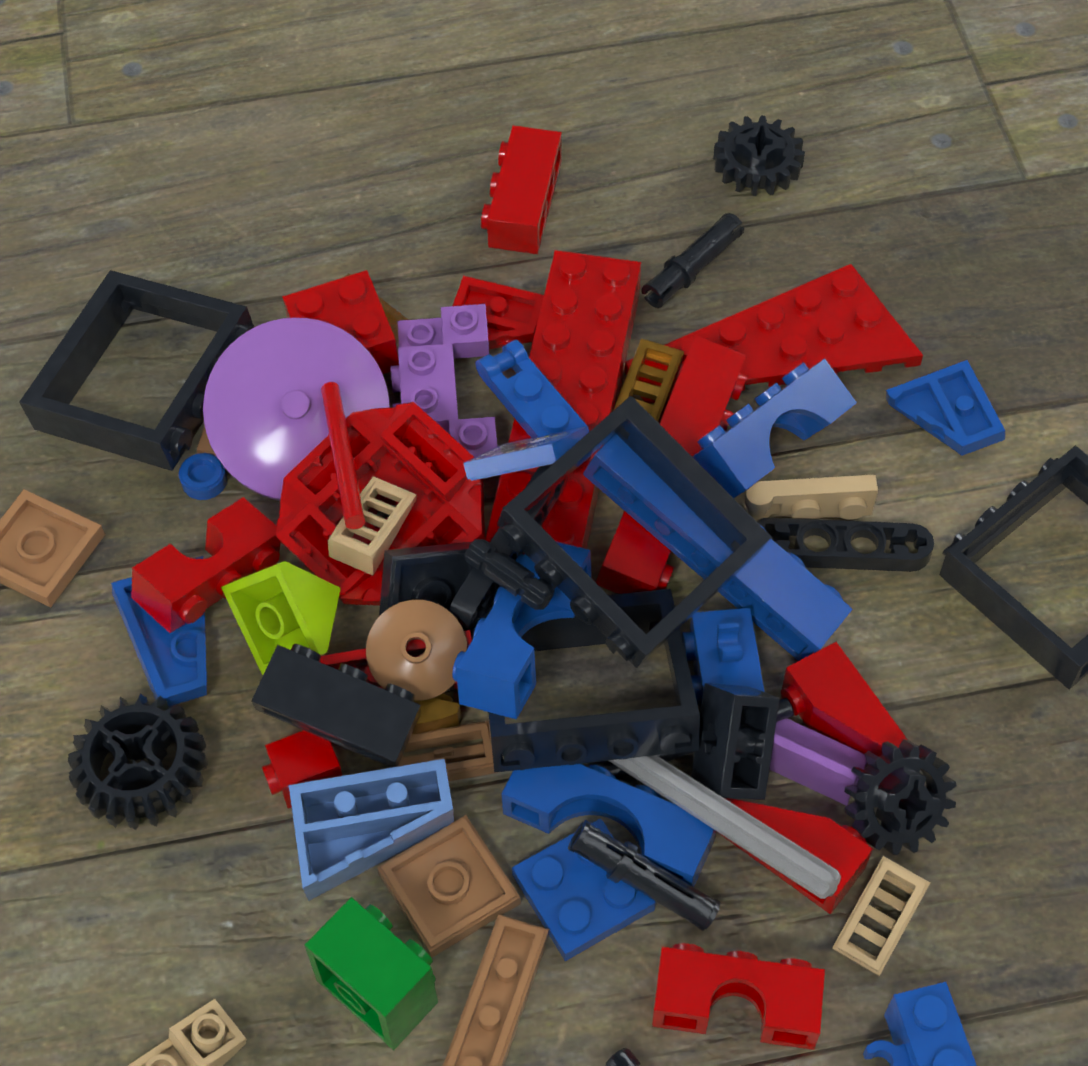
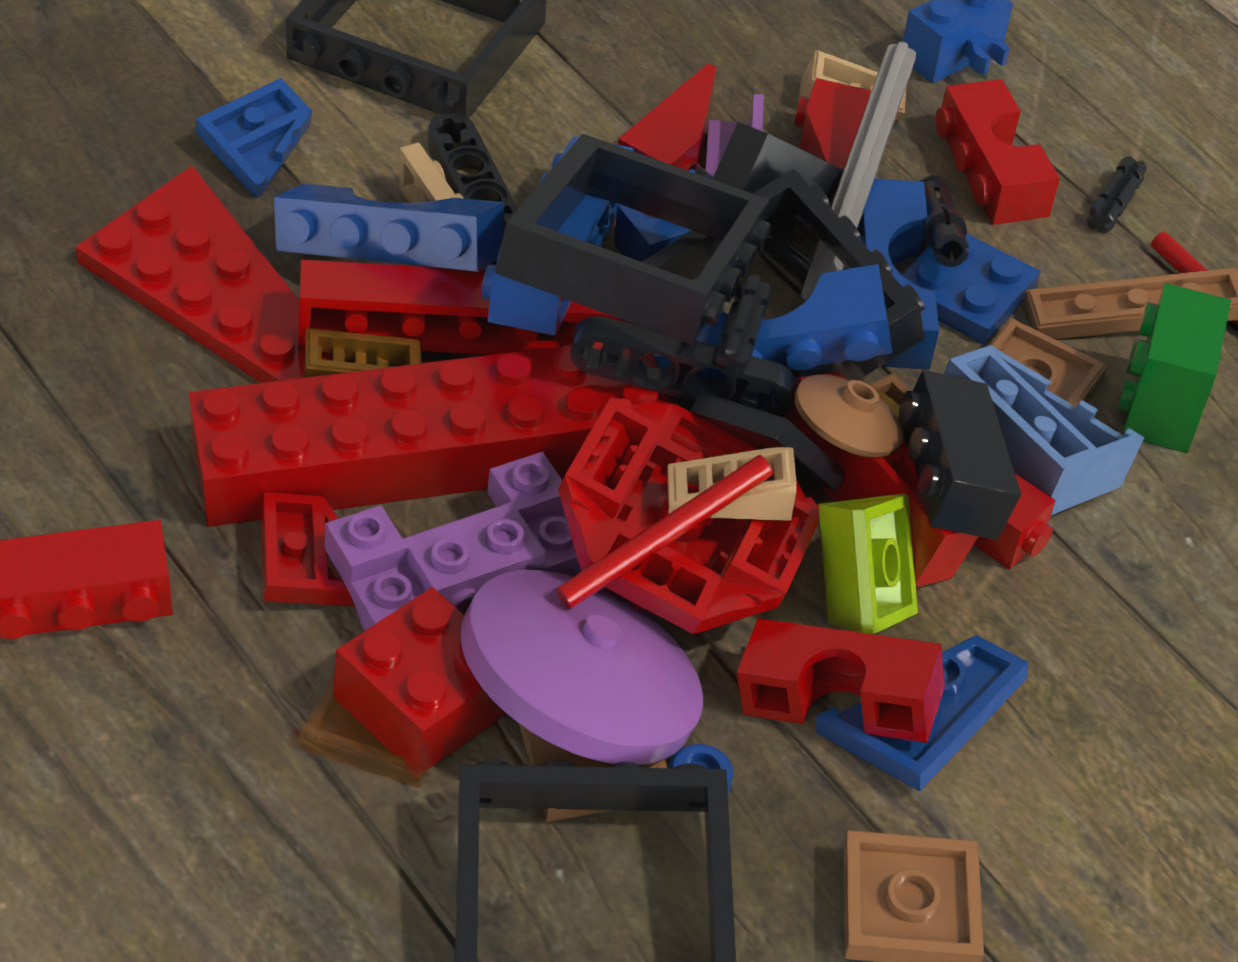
camera: 120 degrees left, 10 degrees down
(137, 734) = (1101, 663): black gear -> none
(523, 454) = (583, 346): tile -> none
(527, 393) = (469, 412): blue plate -> none
(682, 270) = (67, 372): black pin -> none
(900, 794) = (752, 71): black gear -> none

